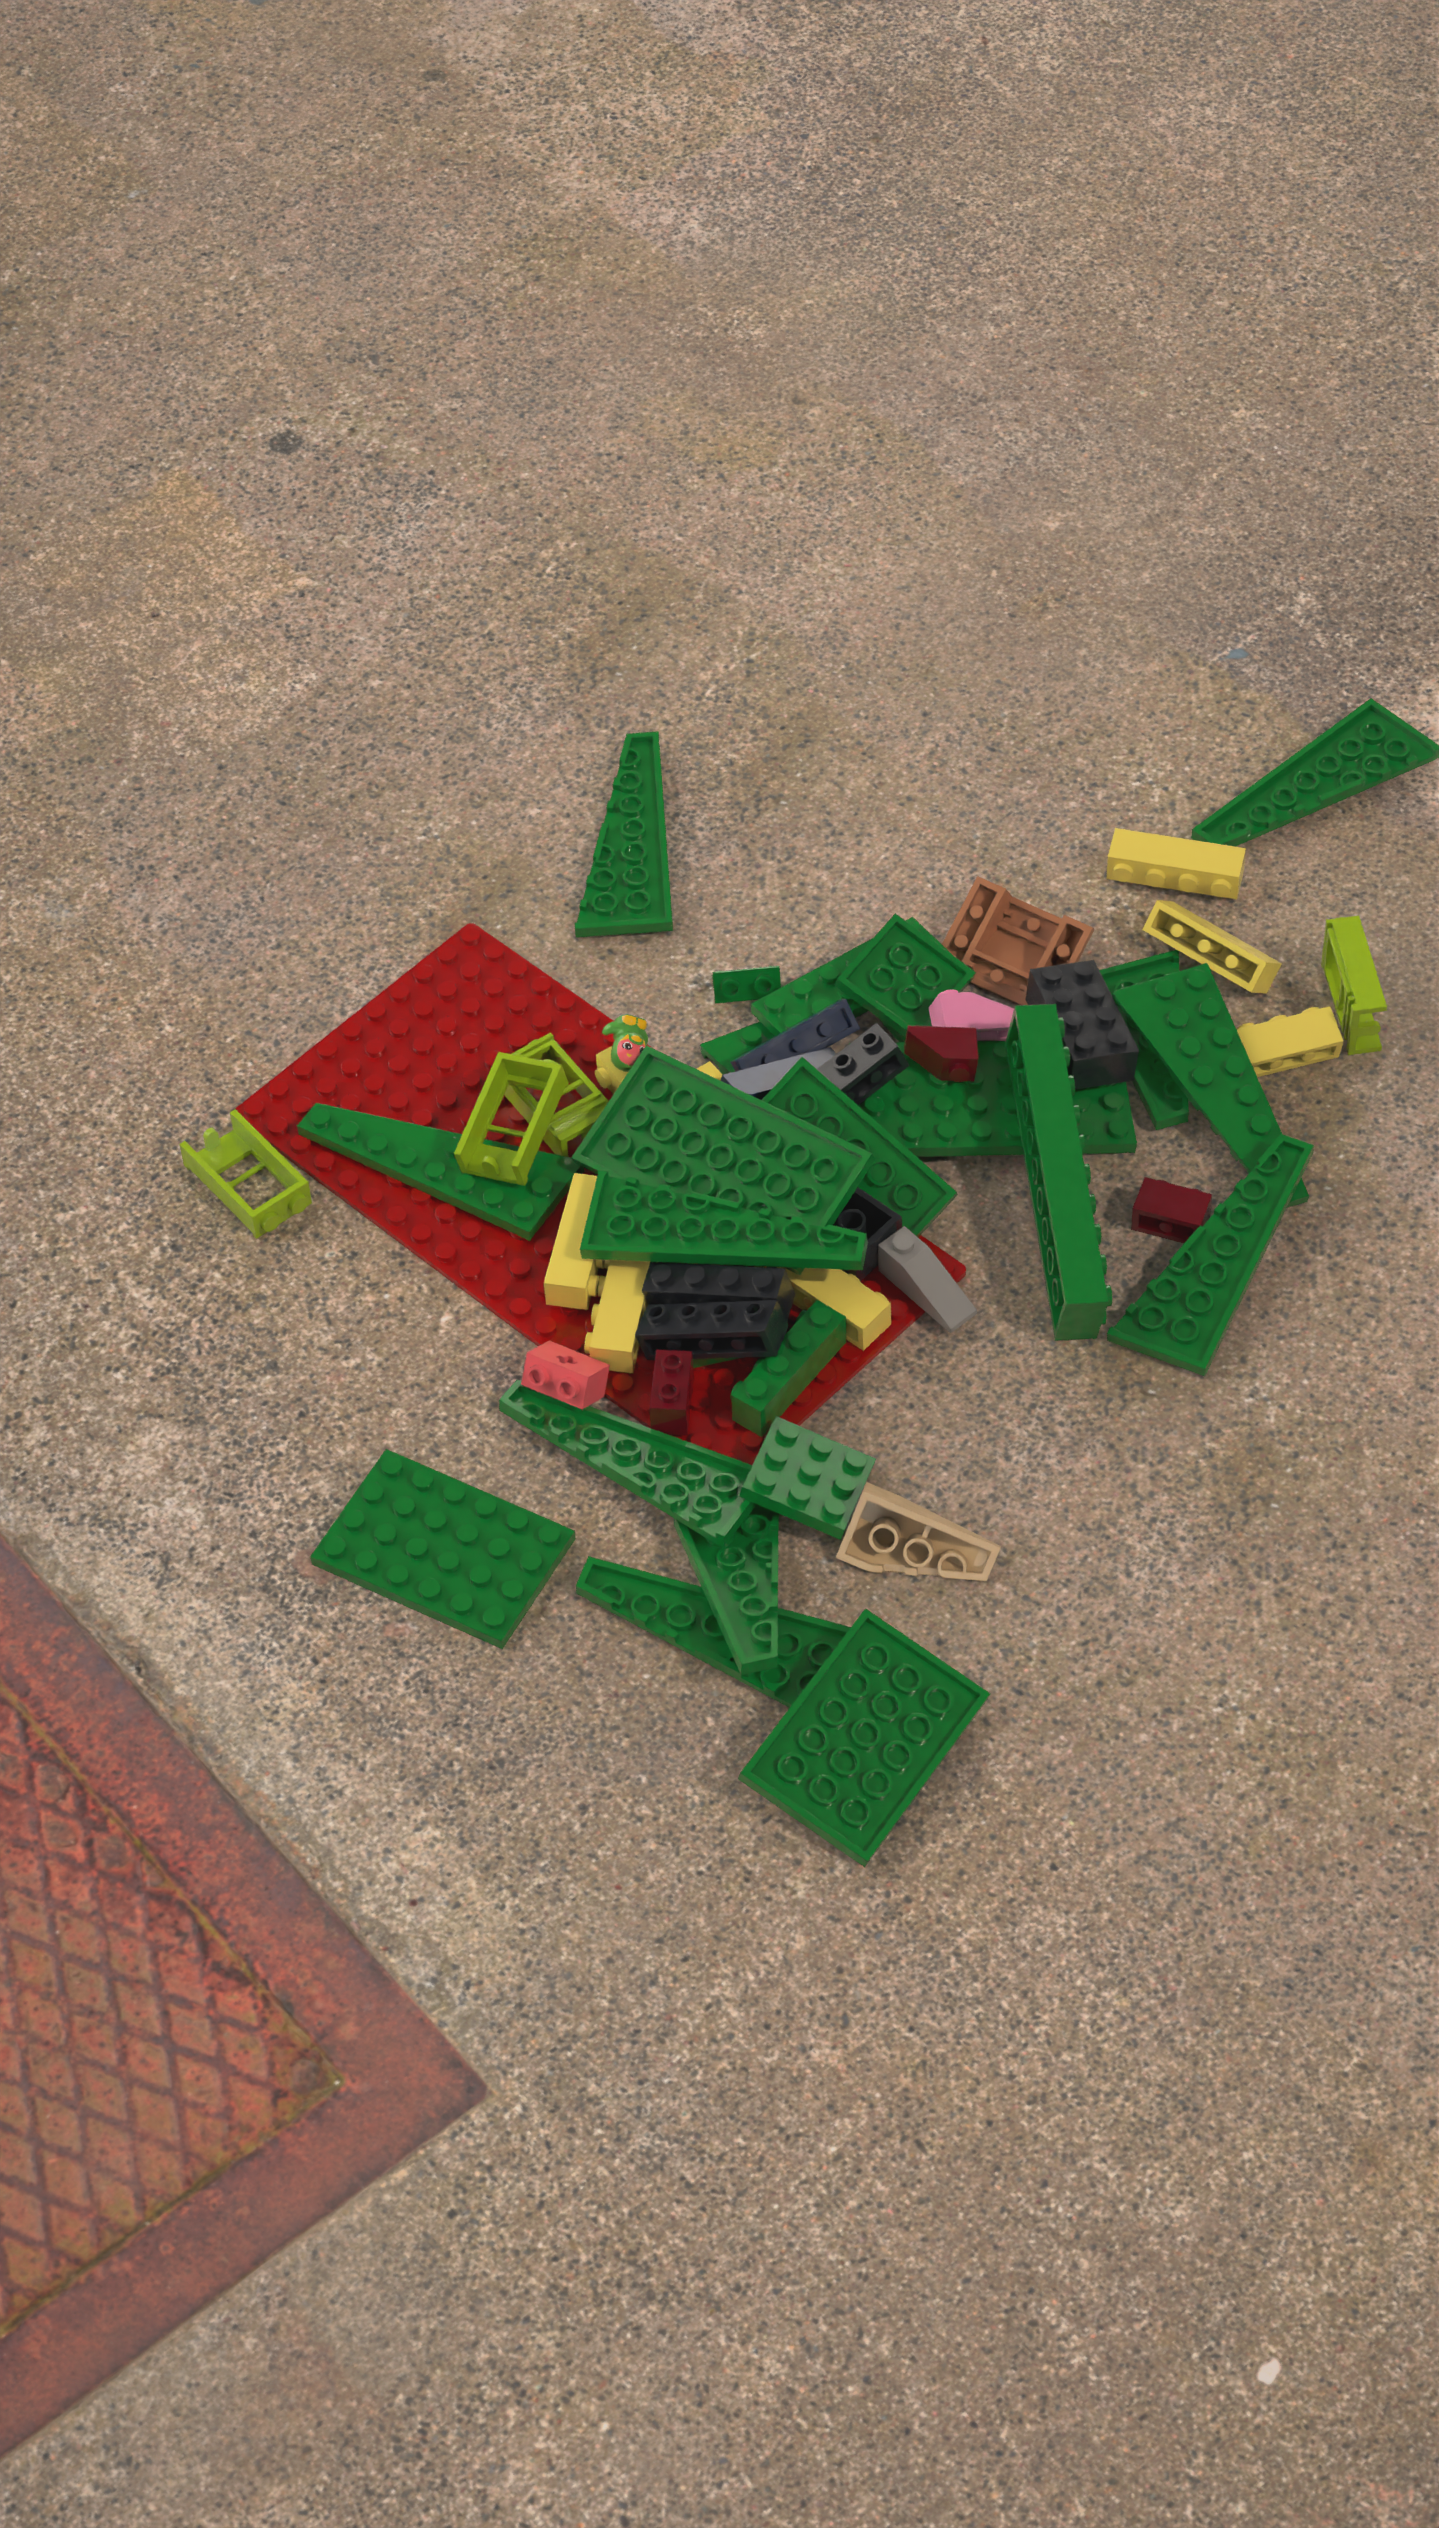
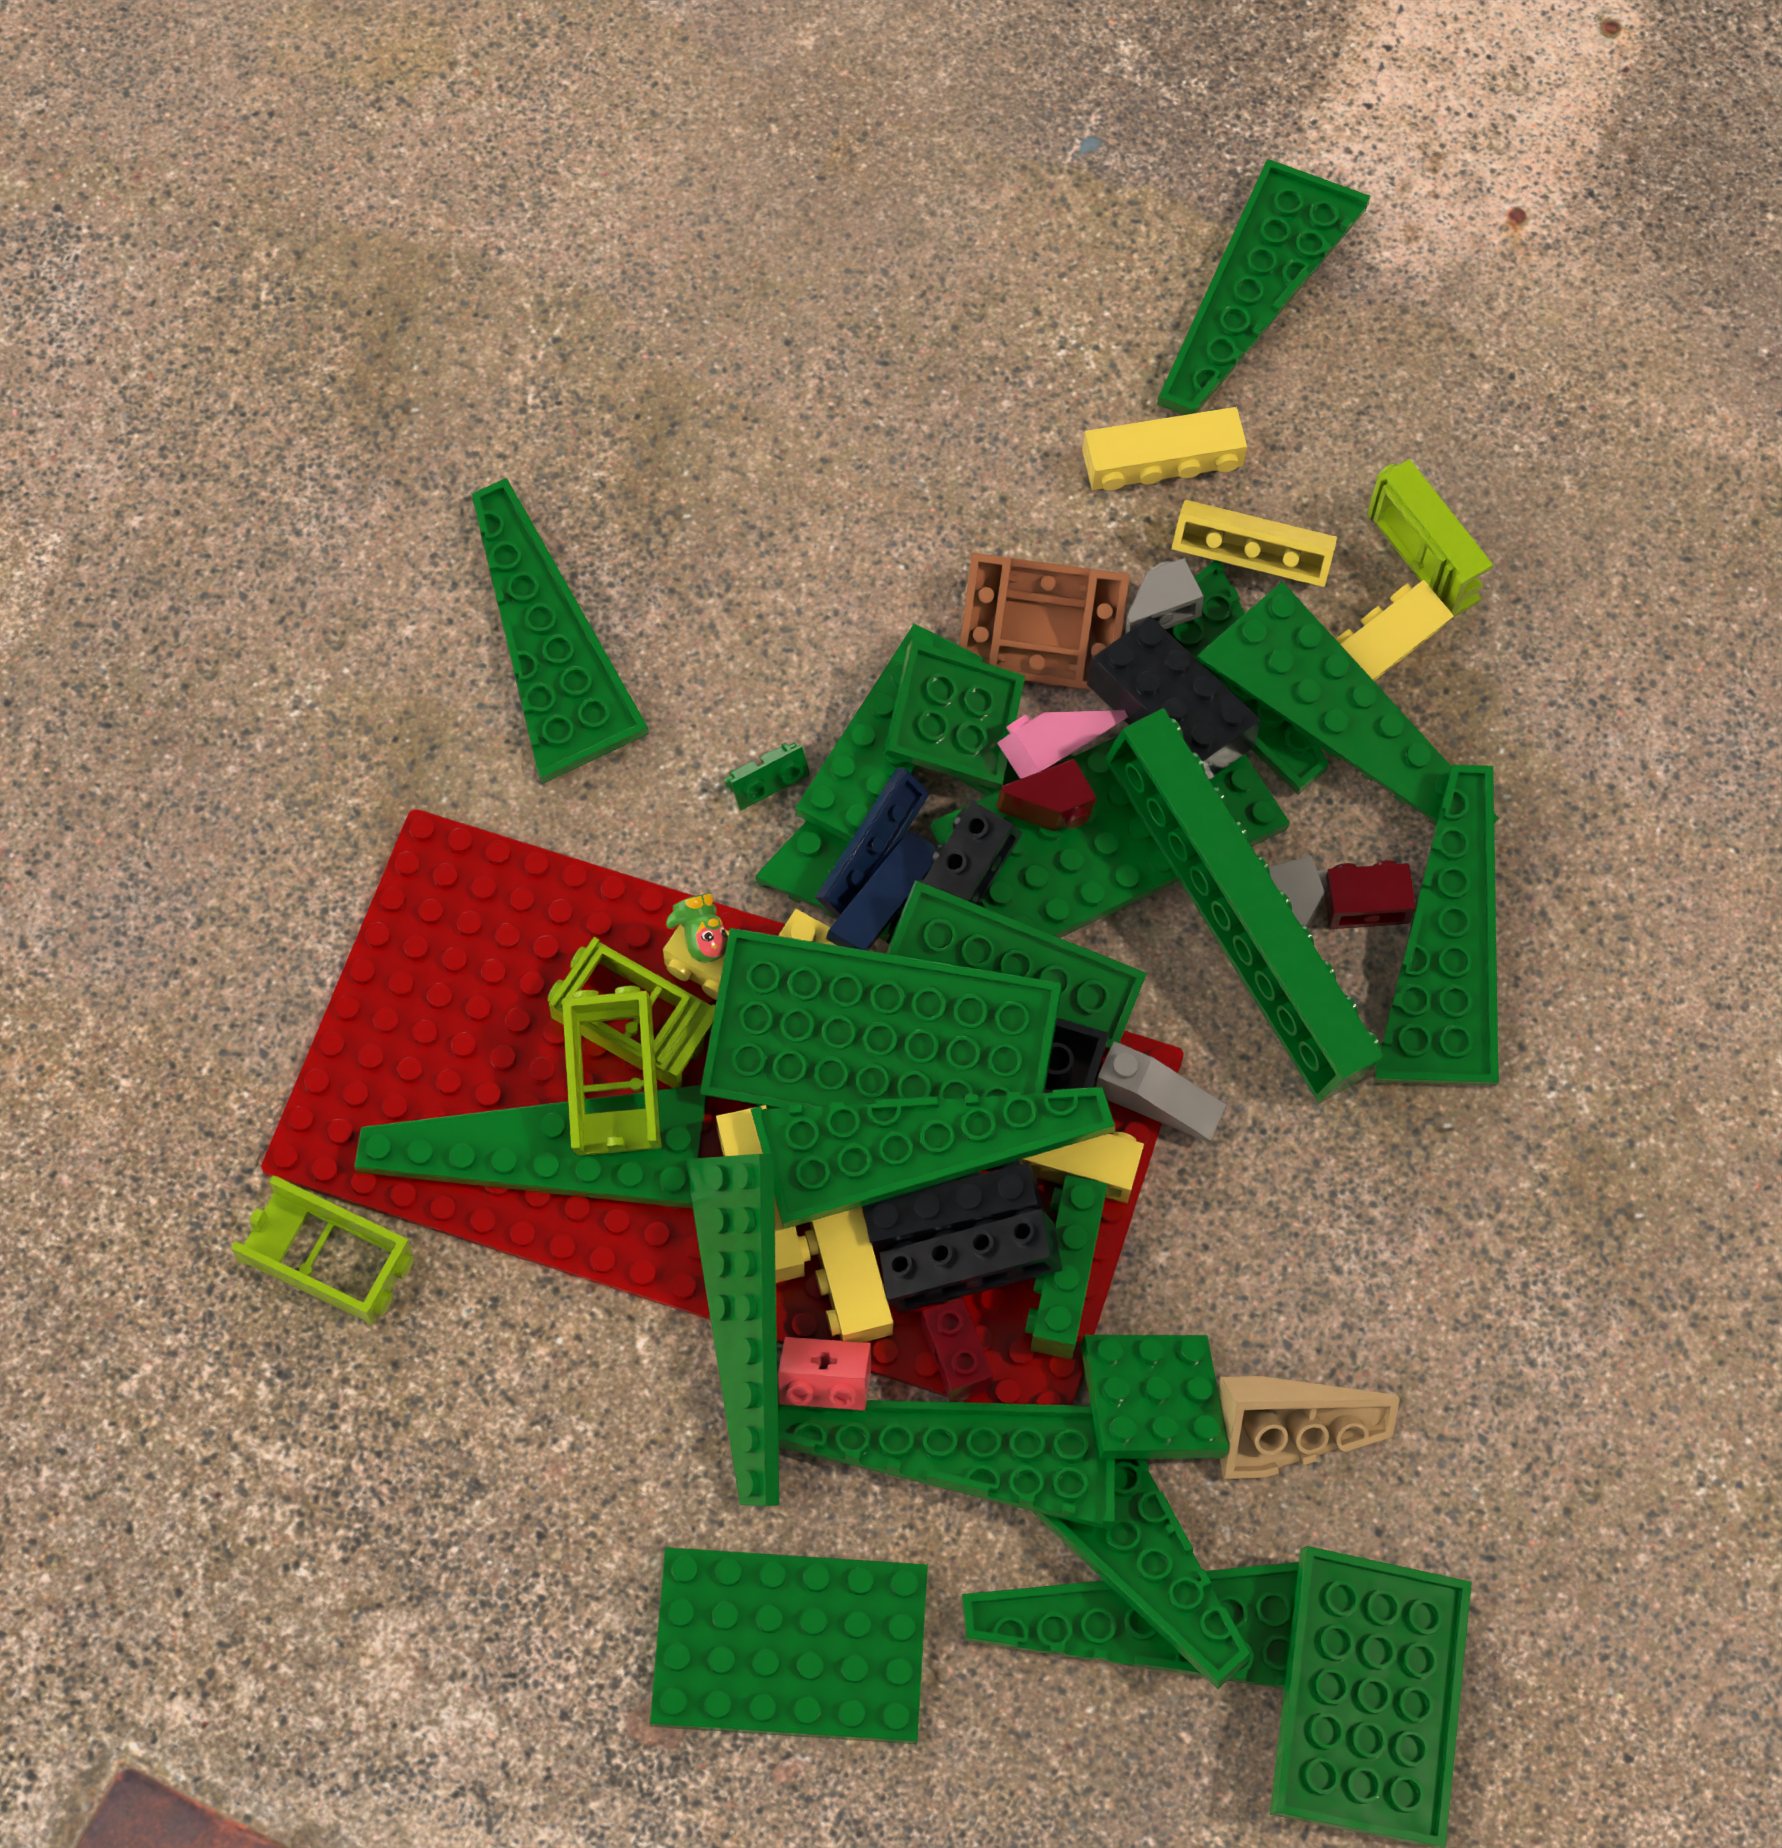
camera: 30 degrees left, 15 degrees up
(536, 1272) = (737, 1254): none -> green wing
(1114, 1191) = (1302, 885): none -> light grey slope
(1116, 955) = (1167, 595): none -> light grey slope

